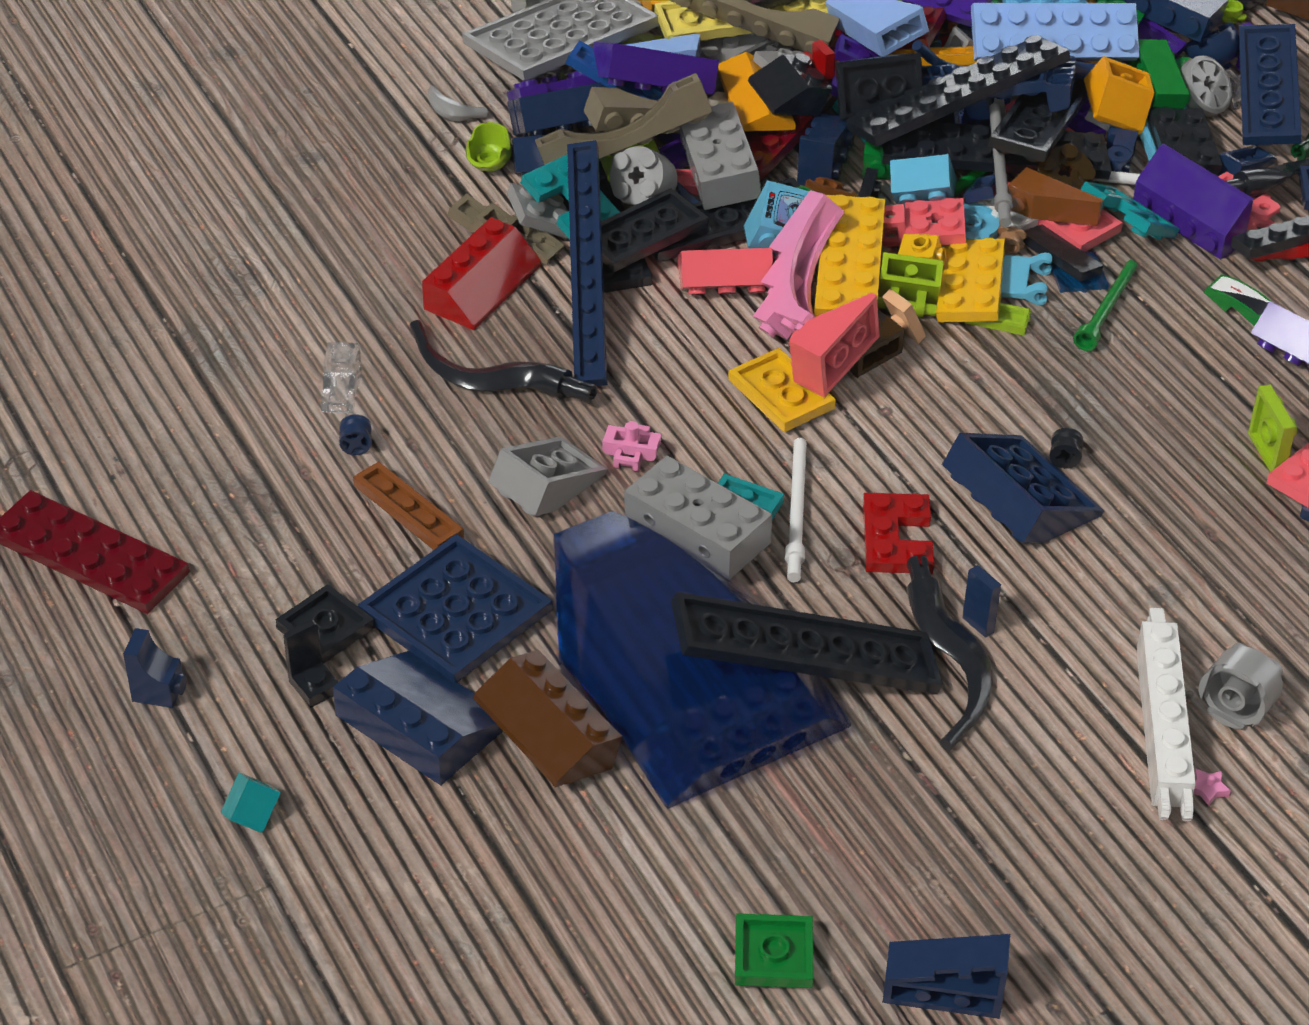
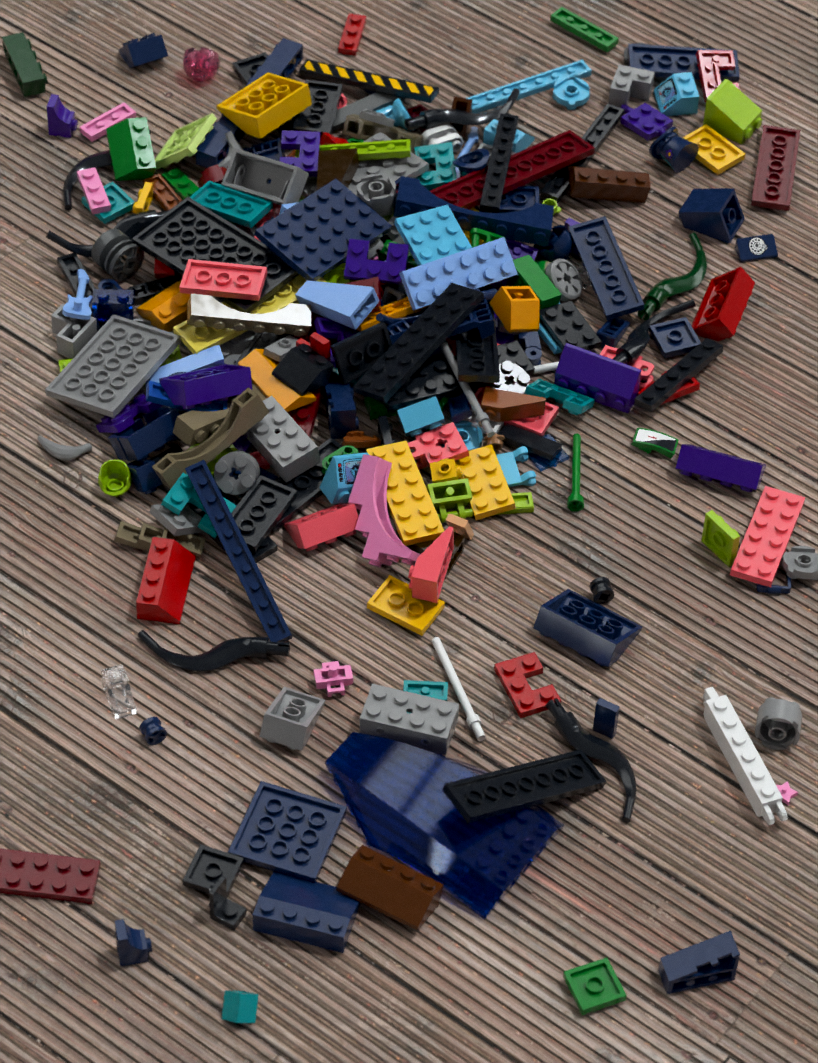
camera: 25 degrees left, 5 degrees up
(406, 505) = (216, 771): dark orange plate -> none

